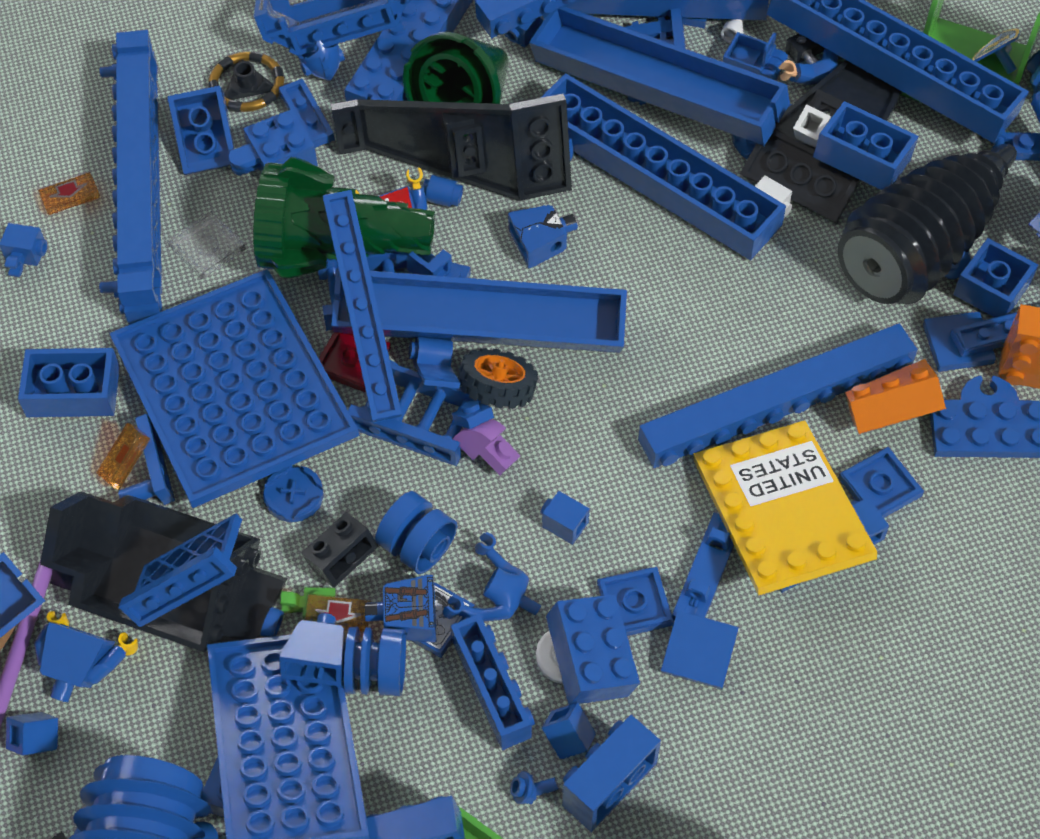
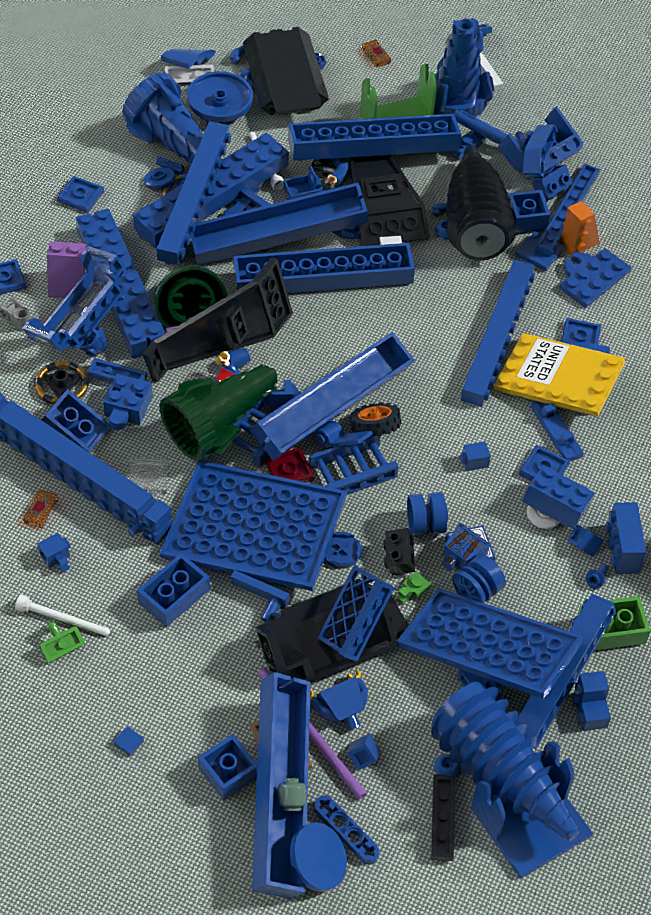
camera: 50 degrees left, 5 degrees down
(123, 455) = (245, 599): clear orange tile -> none
(272, 622) = (408, 609): blue tile -> none
(314, 652) = (454, 597): torso -> none
(347, 611) = (432, 579): clear orange tile -> none
(362, 306) = (290, 429): blue plate -> none
(472, 414) = (387, 443): blue plate -> none
(489, 444) = (402, 450): medium lavender brick -> none
(491, 682) = (533, 547): blue brick -> none
(504, 589) = (487, 506): blue piece -> none
(540, 233) = (306, 343): blue torso -> none
(699, 649) = (595, 462): blue tile -> none
(810, 125) = (384, 196): white brick -> none
(865, 146) = (417, 188): blue brick -> none
(895, 397) = (550, 291): orange wedge -> none
(1001, 47) = (409, 102): shield -> none

